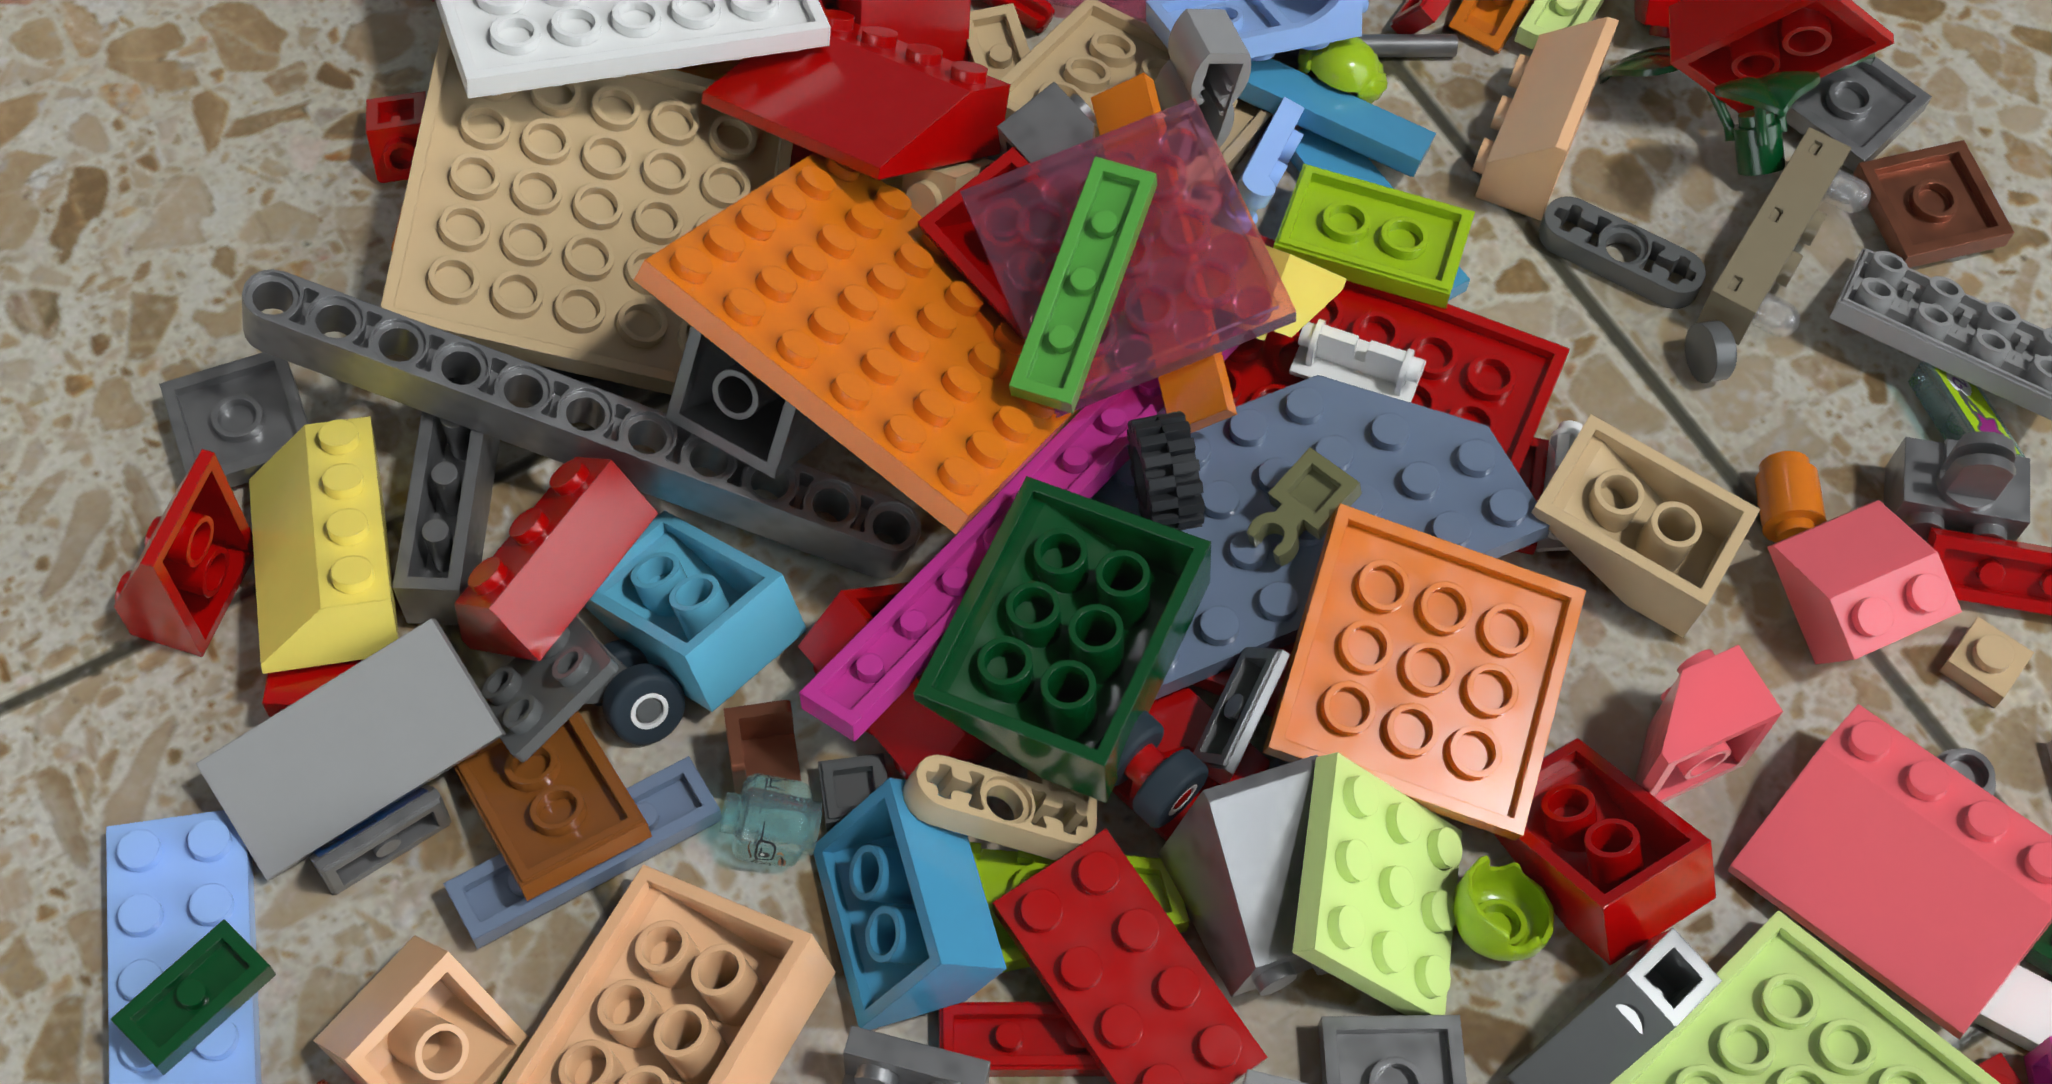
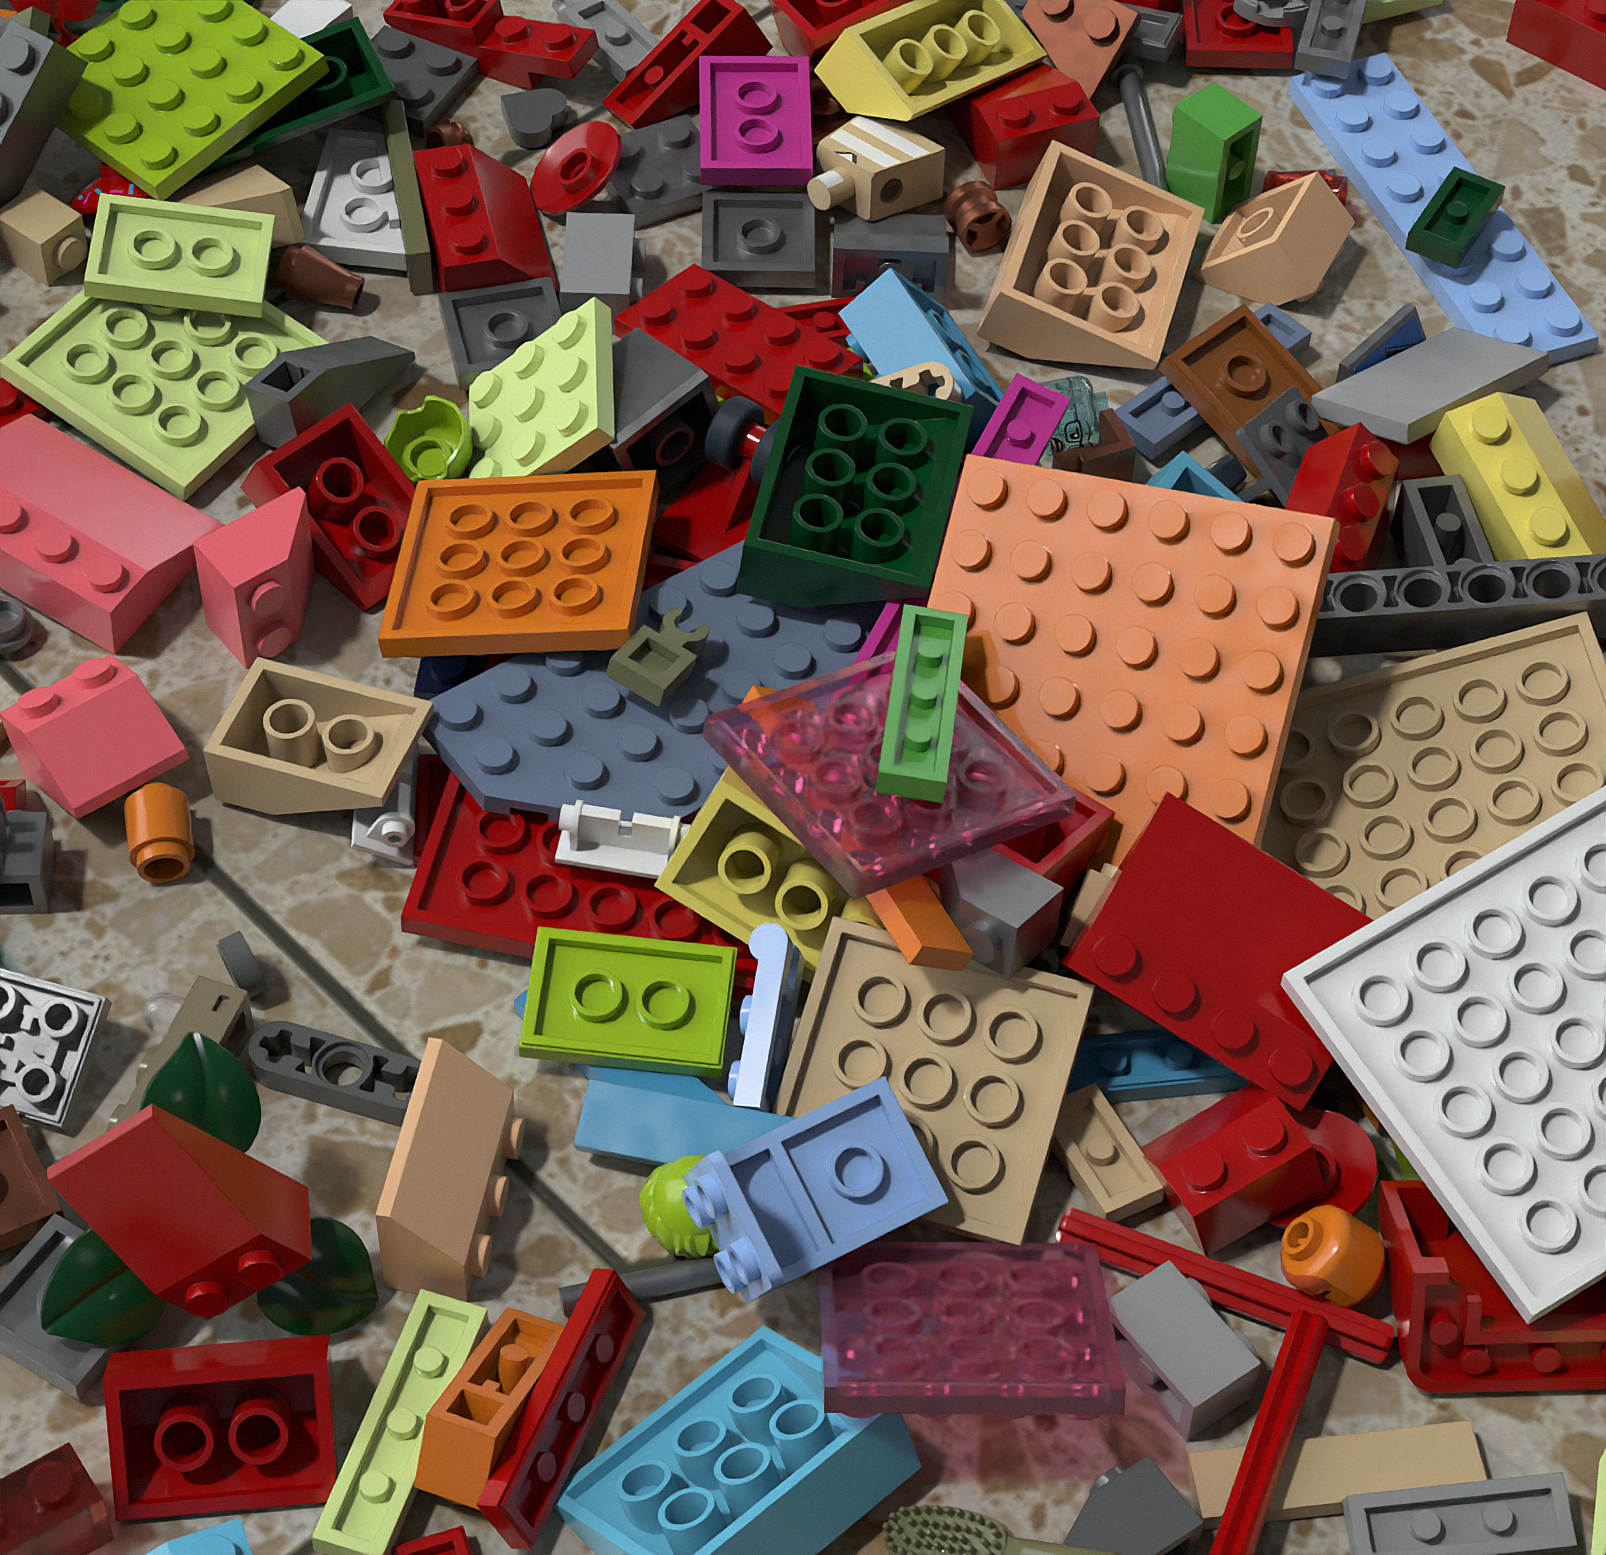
camera: 170 degrees right, 10 degrees down
(1166, 470) = (798, 630): black tyre -> none
(1207, 65) = (858, 1021): light grey brick -> none
(1239, 710) = (683, 511): flat silver slope -> none

